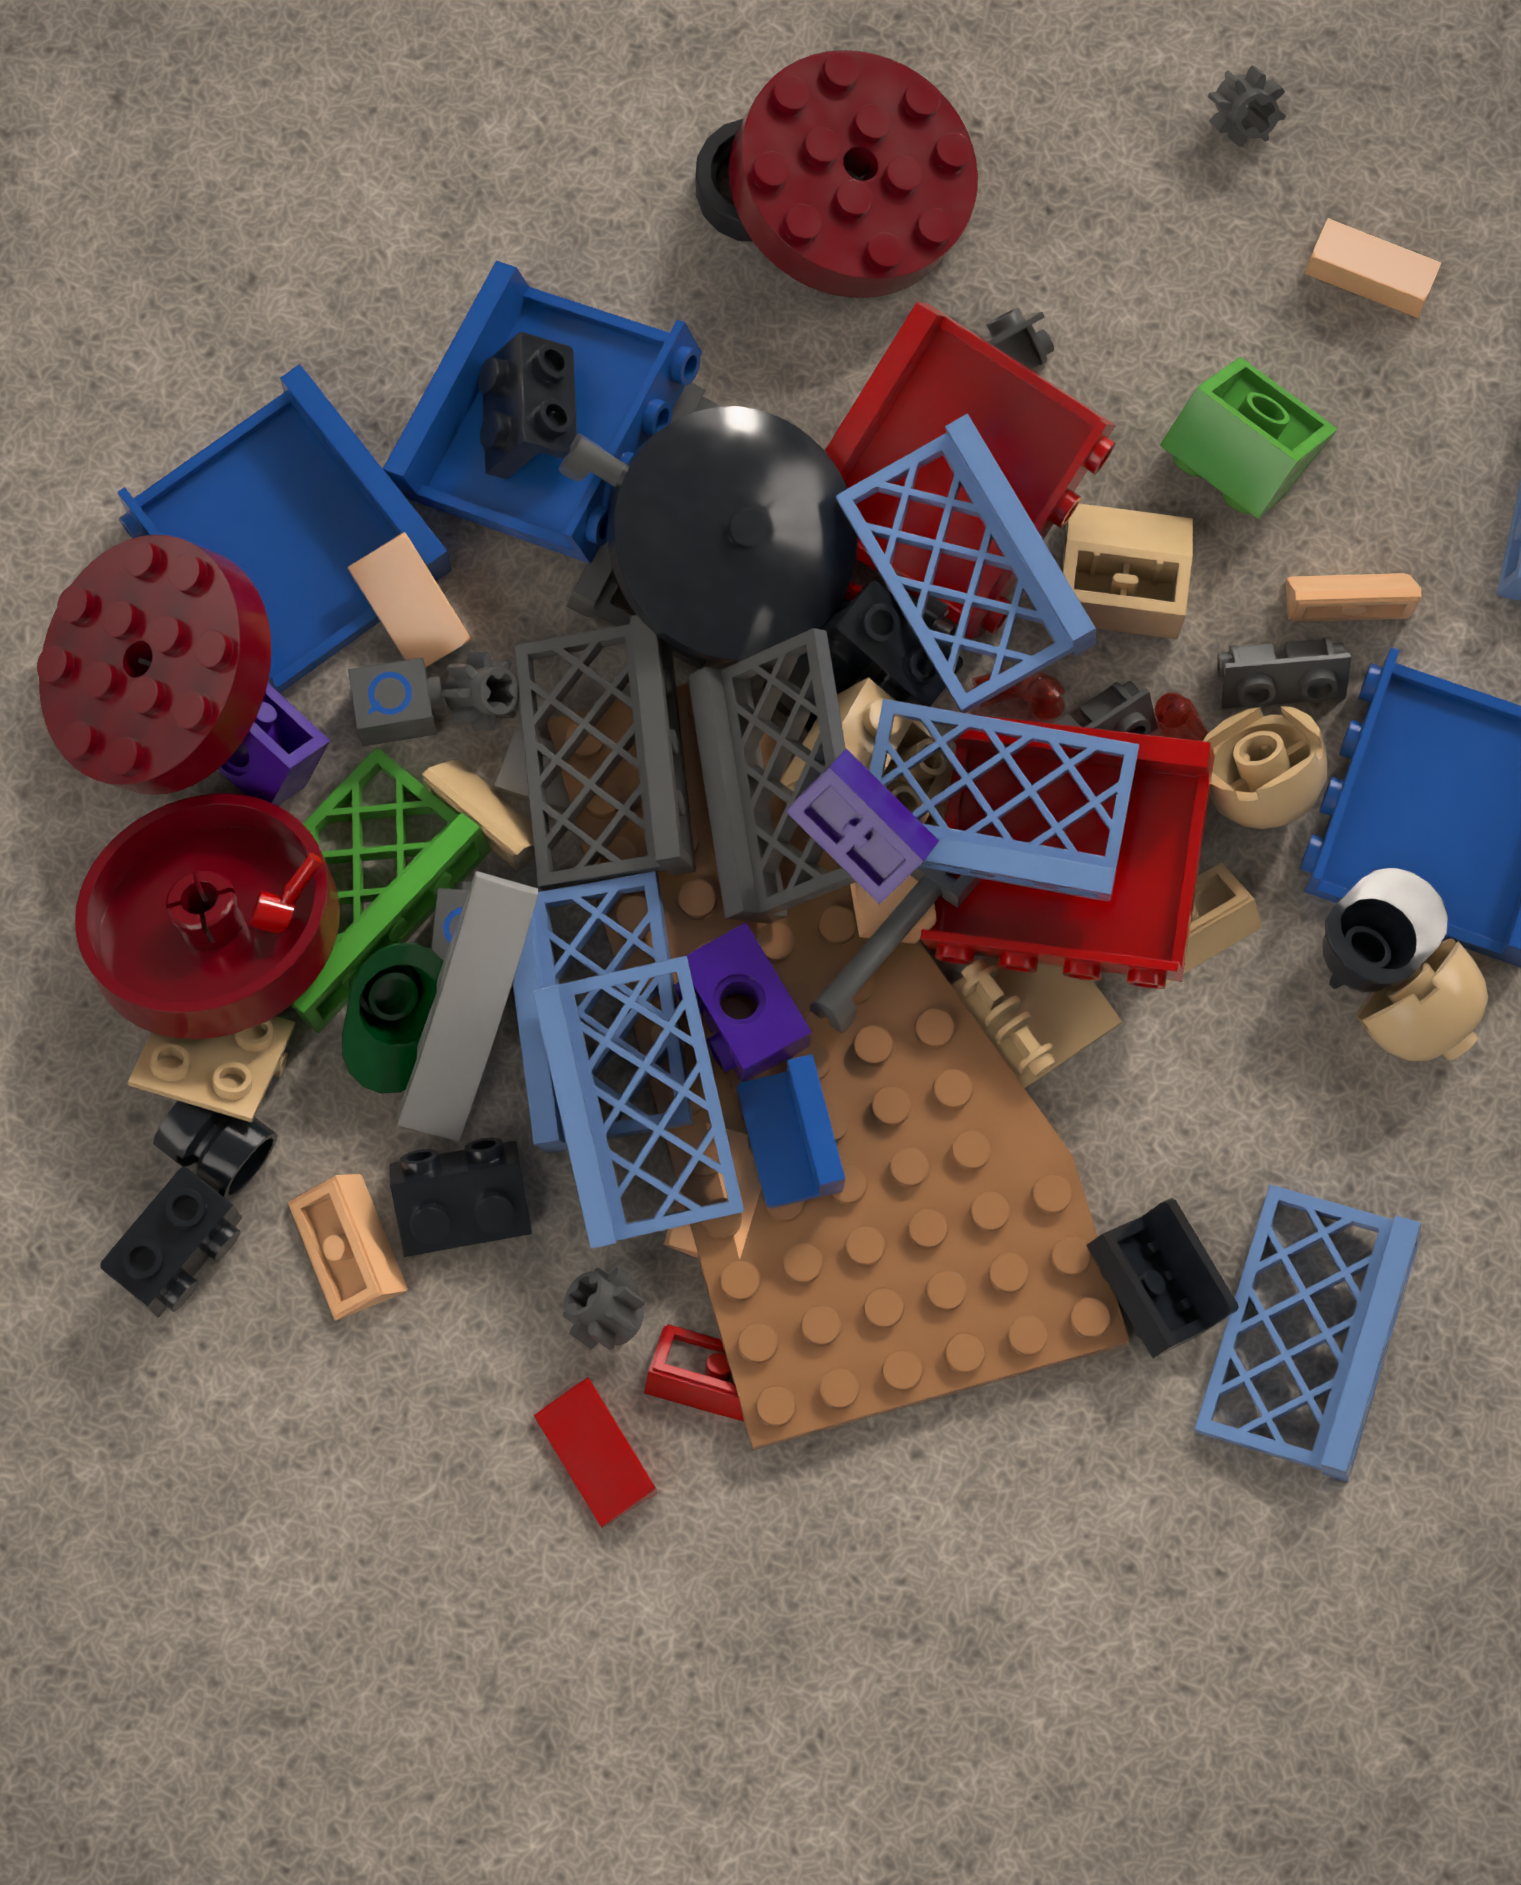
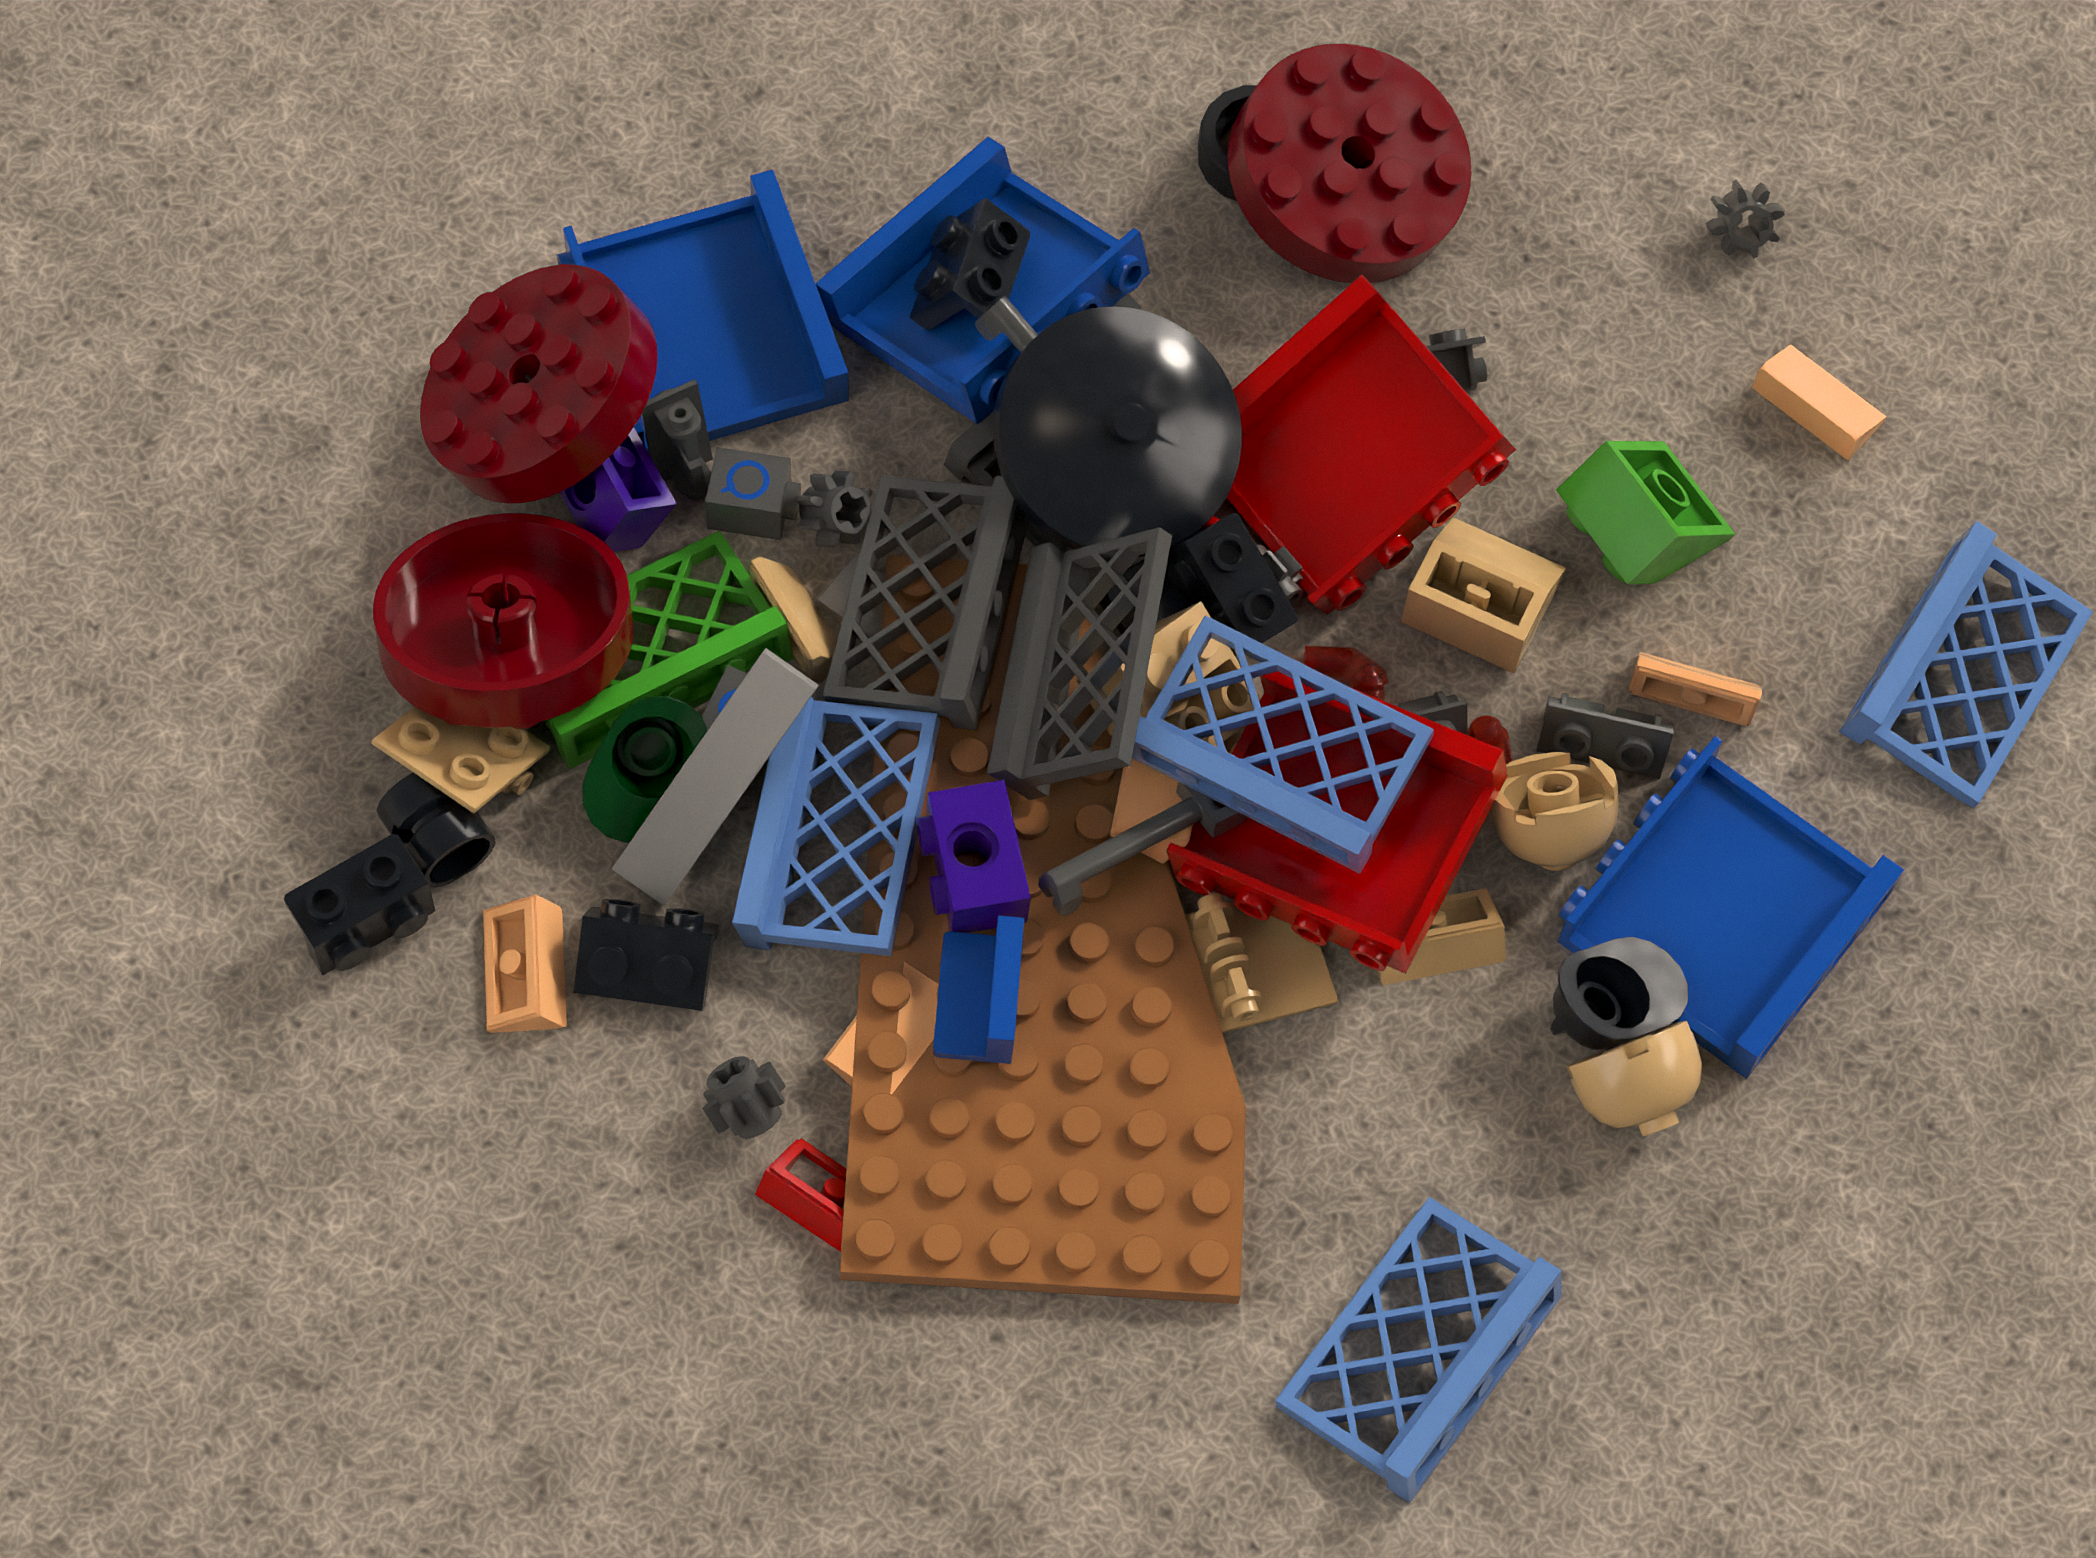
camera: 15 degrees right, 10 degrees down
(275, 912) = (565, 631): red hand -> none
(309, 673) = (679, 438): none -> dark grey hinge
(409, 601) = (797, 408): light nougat slope -> none
(582, 1114) = (786, 900): medium blue fence -> none
(595, 1453) = (688, 1231): red slope -> none
(863, 826) = (1141, 713): hinge -> none
(1014, 536) = (1382, 514): medium blue fence -> none
(1163, 1278) = (1292, 1246): black bracket -> none

